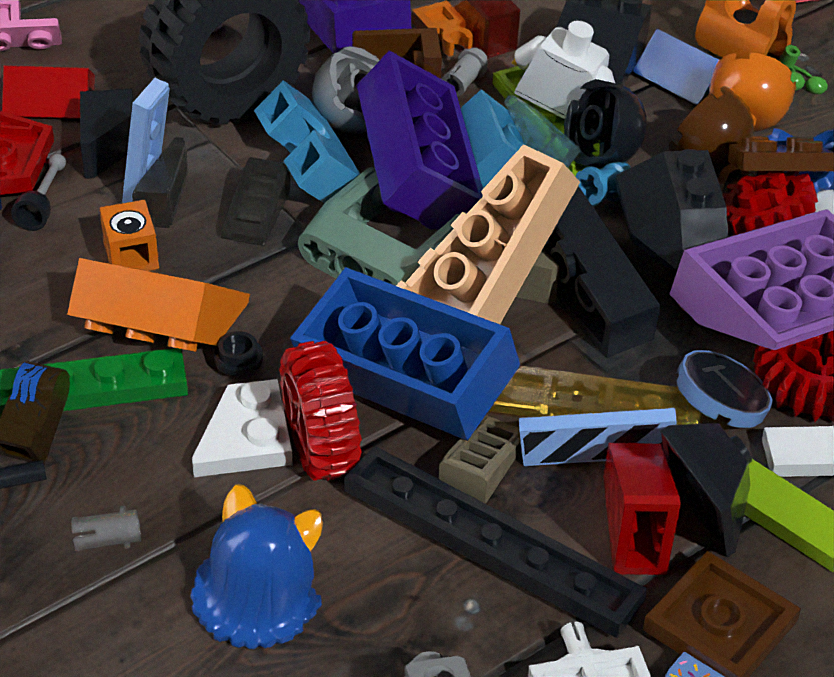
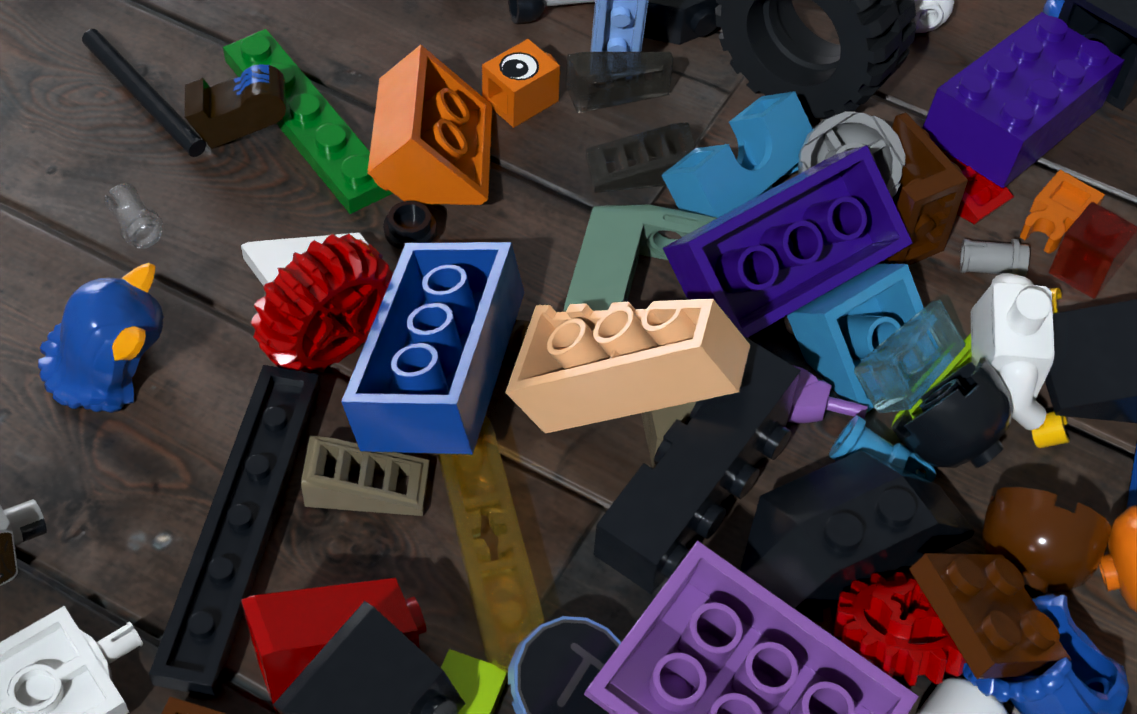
camera: 65 degrees right, 10 degrees up
(587, 436) = (420, 572): light blue tile -> none

